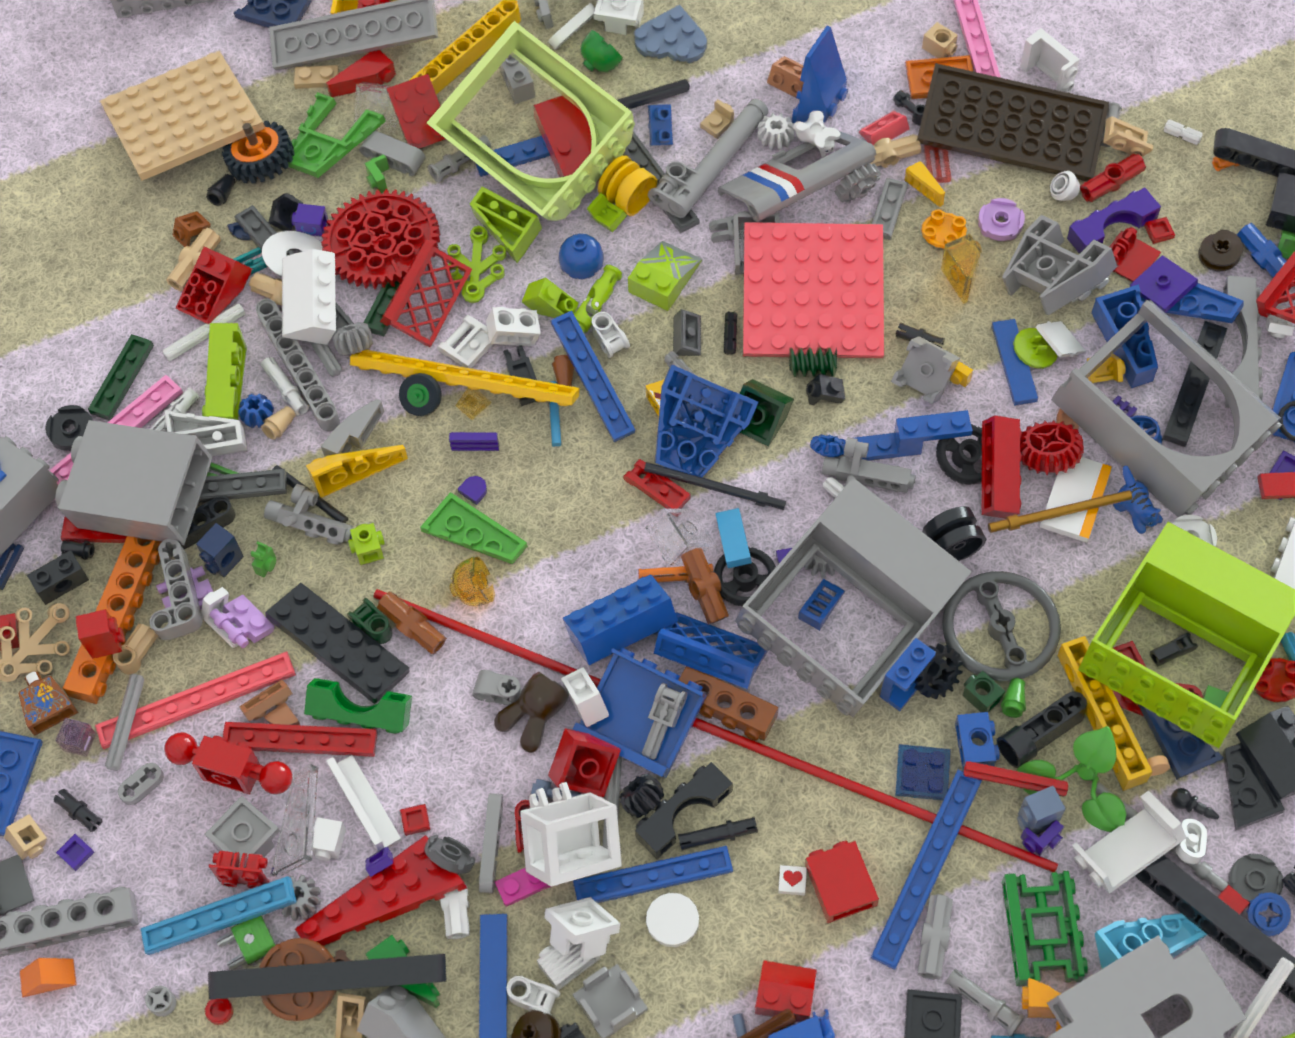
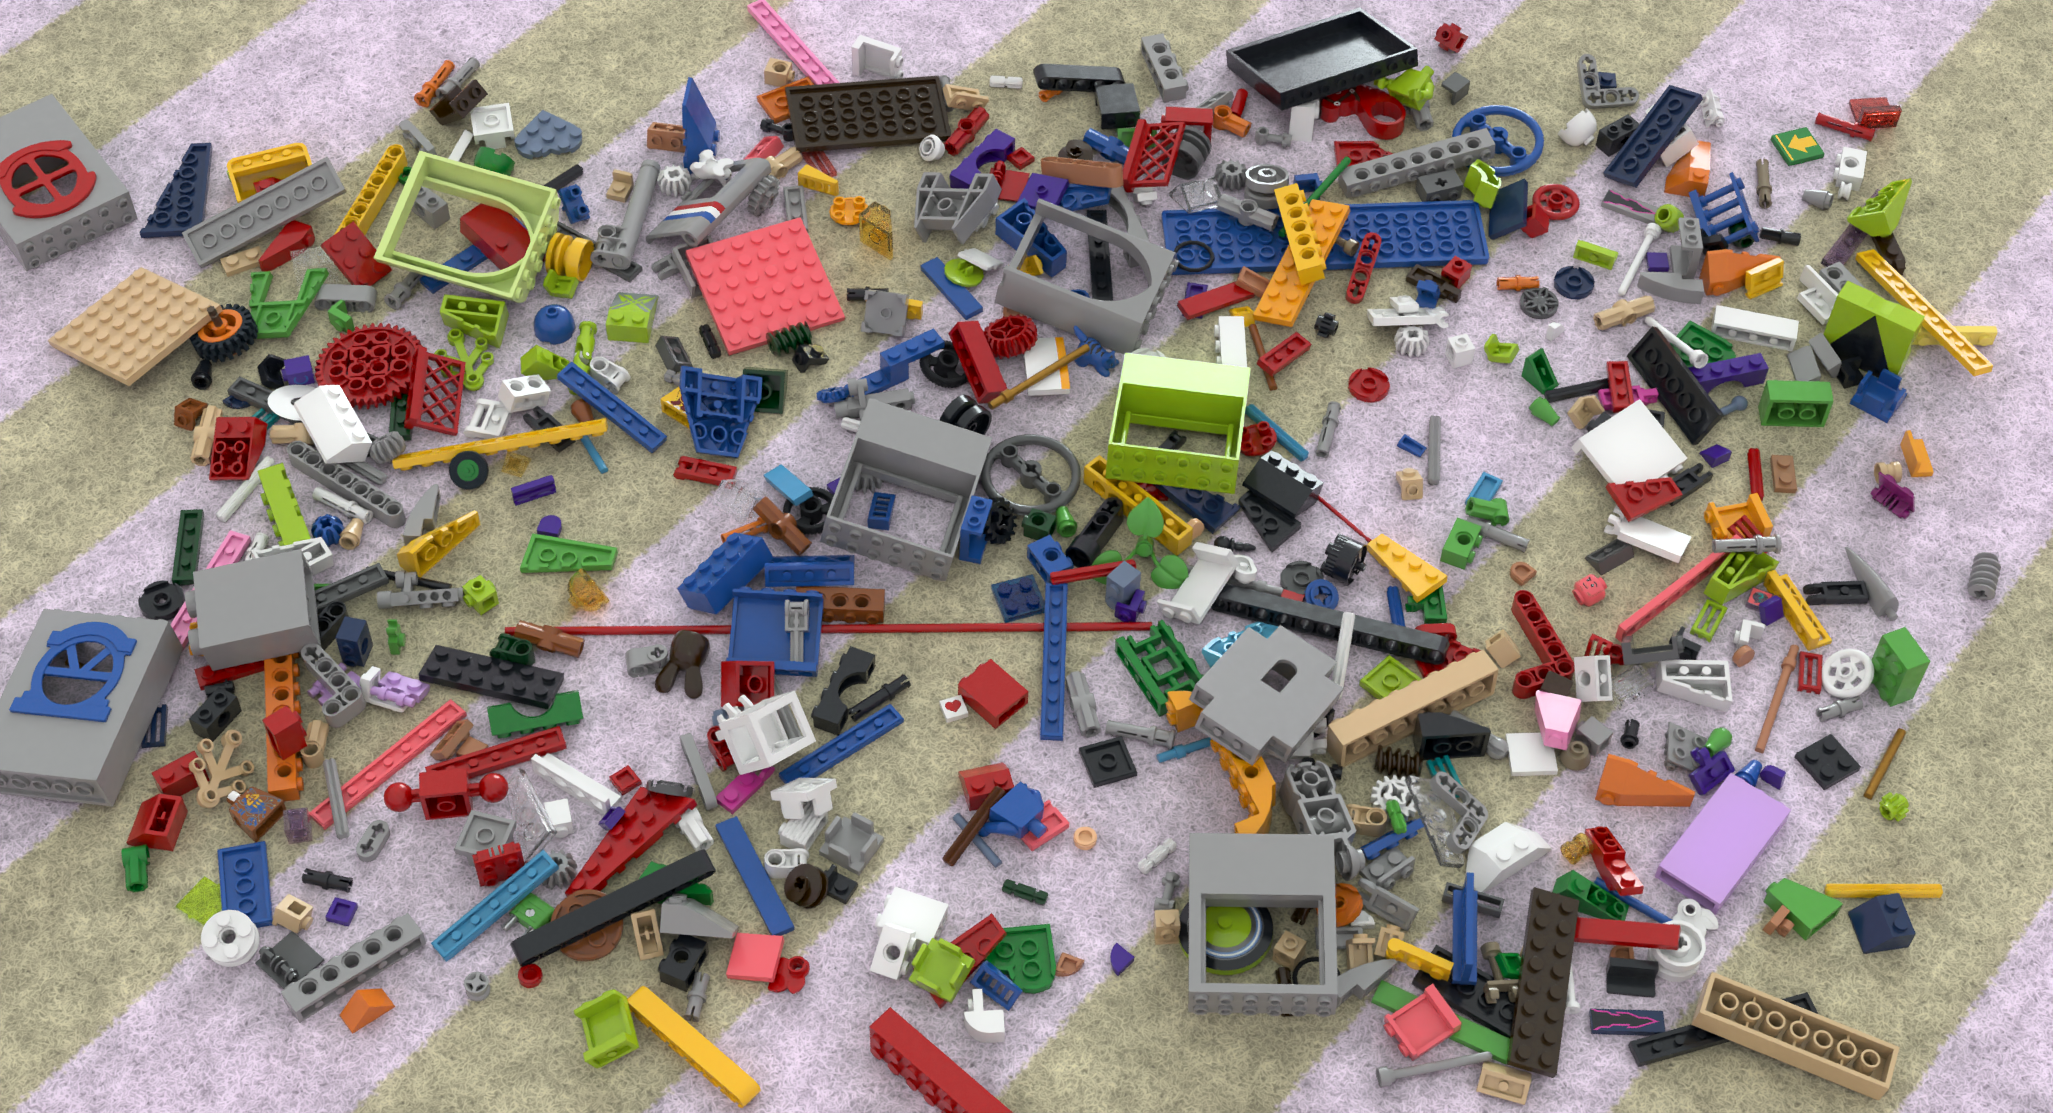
camera: 30 degrees left, 10 degrees down
(585, 697) = (725, 637): white panel -> none
(641, 795) = (808, 689): black gear -> none
(672, 919) = (872, 771): white tile -> none
(761, 498) = (794, 452): black bar -> none
(997, 230) = (888, 197): lavender plate -> none
(1219, 275) = (1084, 171): none -> nougat beam

